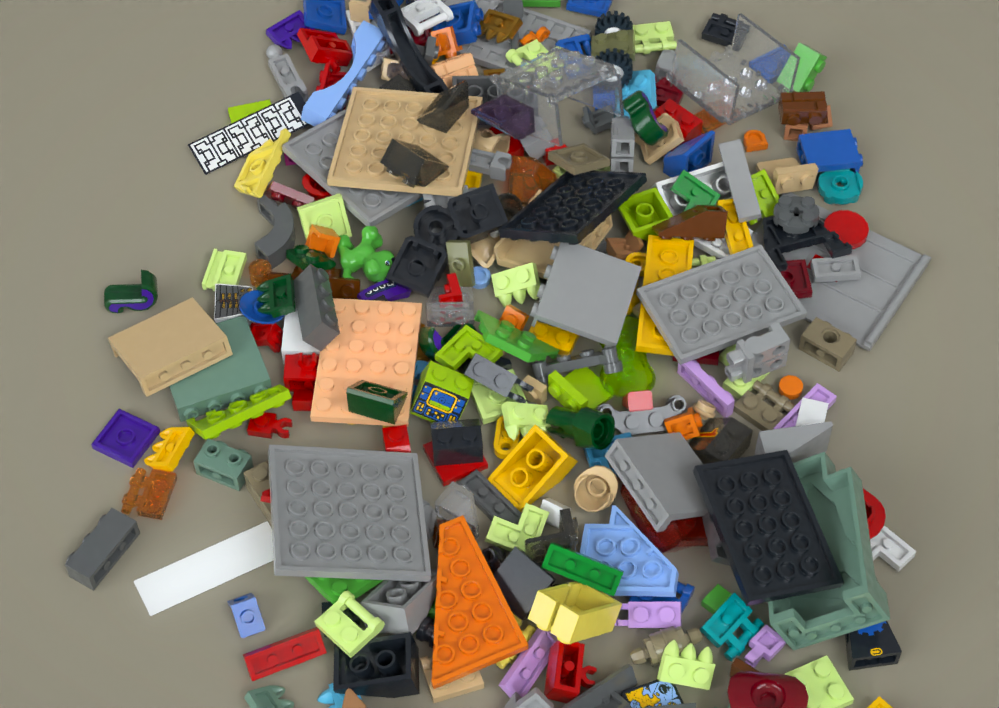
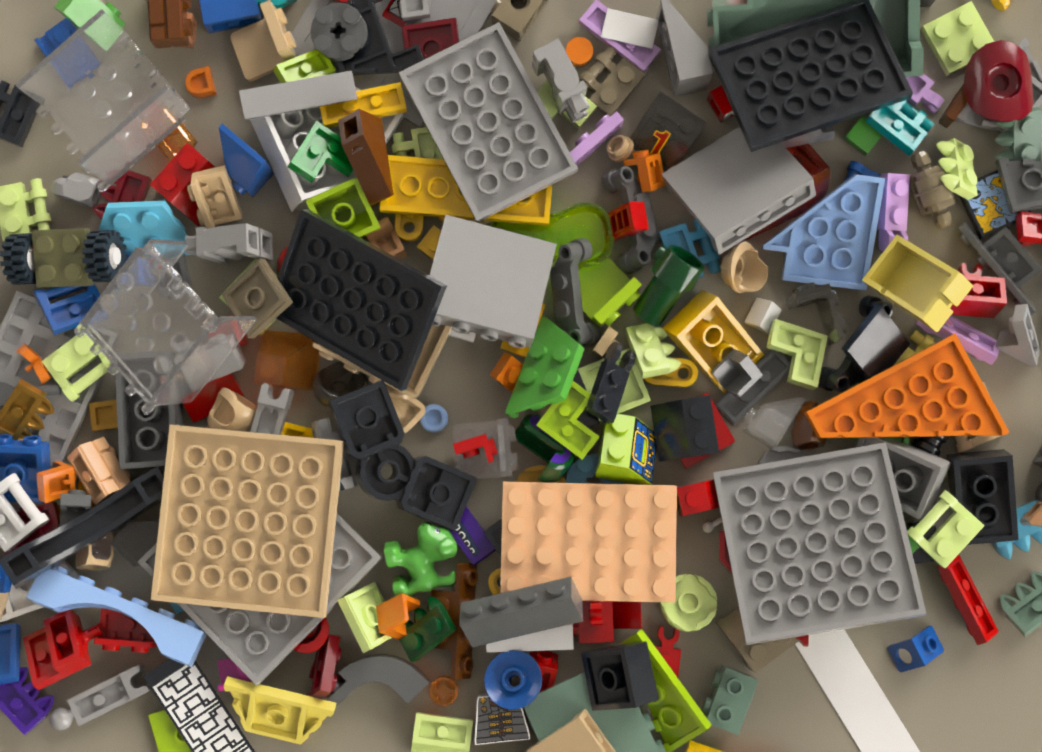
camera: 90 degrees left, 30 degrees up
(255, 375) = (619, 676): none -> black slope
(277, 296) = (501, 660): dark green plate -> none
(309, 434) = (693, 605): none -> yellowish green tile
(375, 401) = (659, 522): dark green slope -> none
(412, 163) = (305, 504): clear smoke slope -> none
(446, 108) = (199, 472): clear smoke slope -> none
(461, 261) = (431, 439): olive plate -> none
(503, 480) = (736, 373): none -> dark grey panel
(507, 116) = (211, 391): clear purple slope -> none
(516, 282) = (452, 368): yellowish green plate -> none
(582, 569) = (863, 277): green plate -> none
(644, 118) = (201, 213): dark green animal -> none

